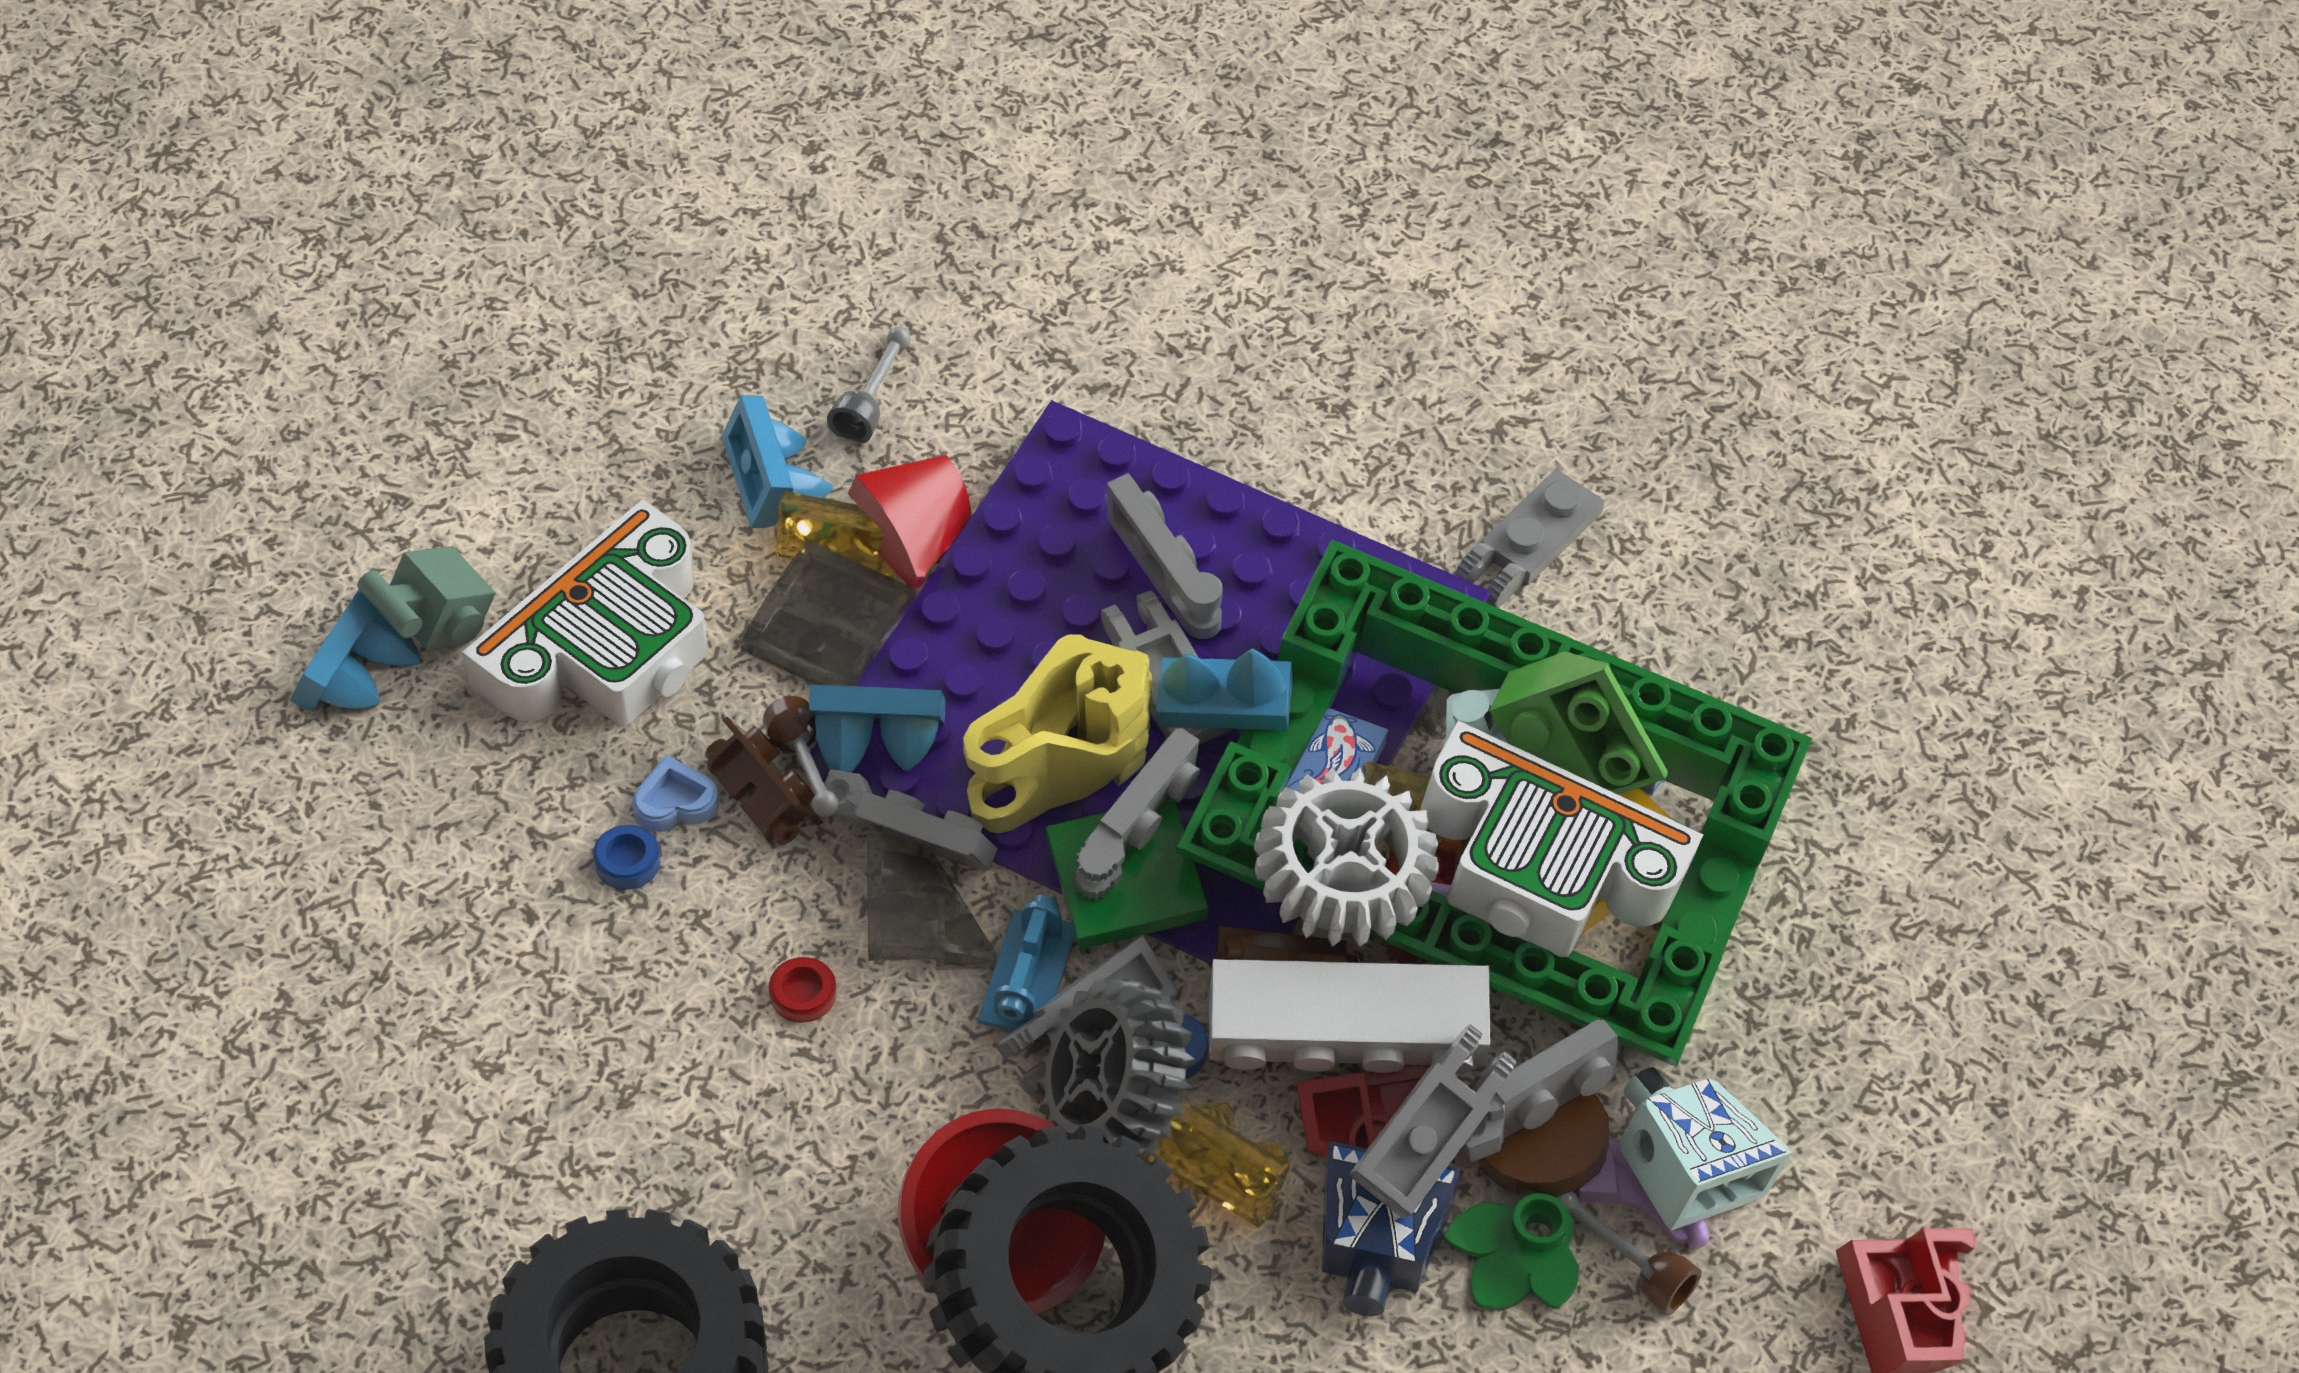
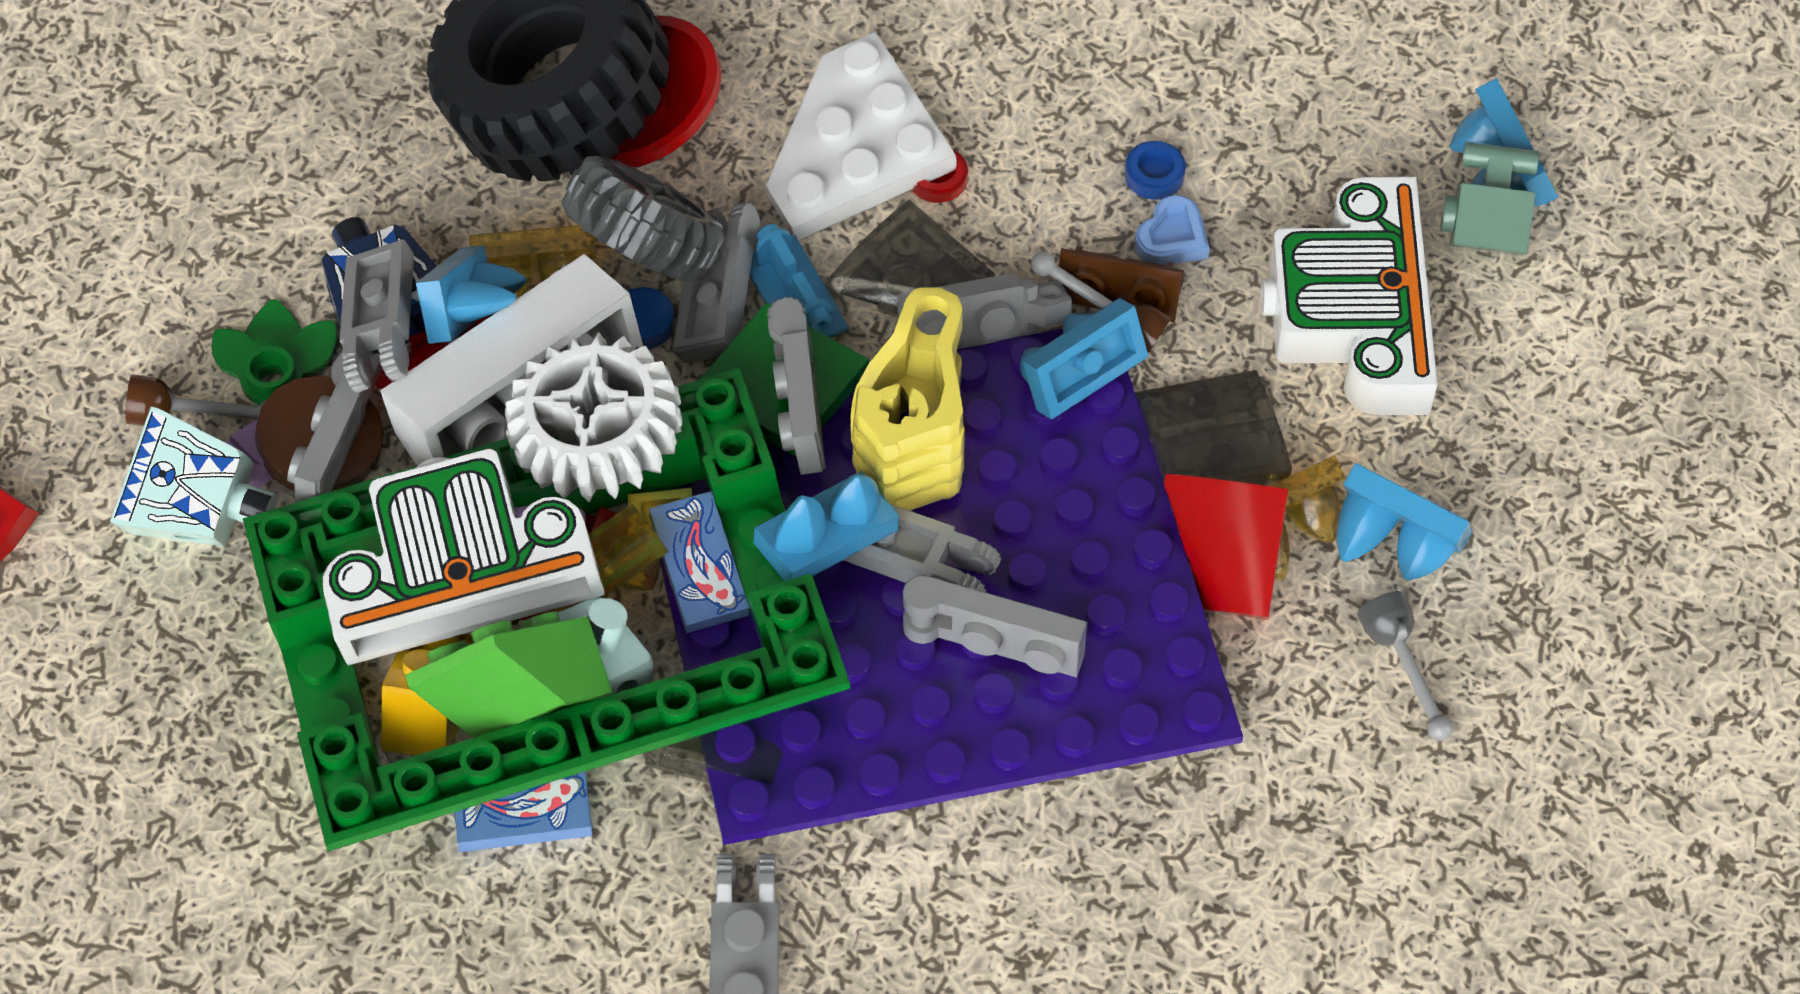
camera: 140 degrees right, 5 degrees up
(840, 1064) = (854, 141): none -> white plate
(1353, 1079) = (464, 292): none -> dark azure tile

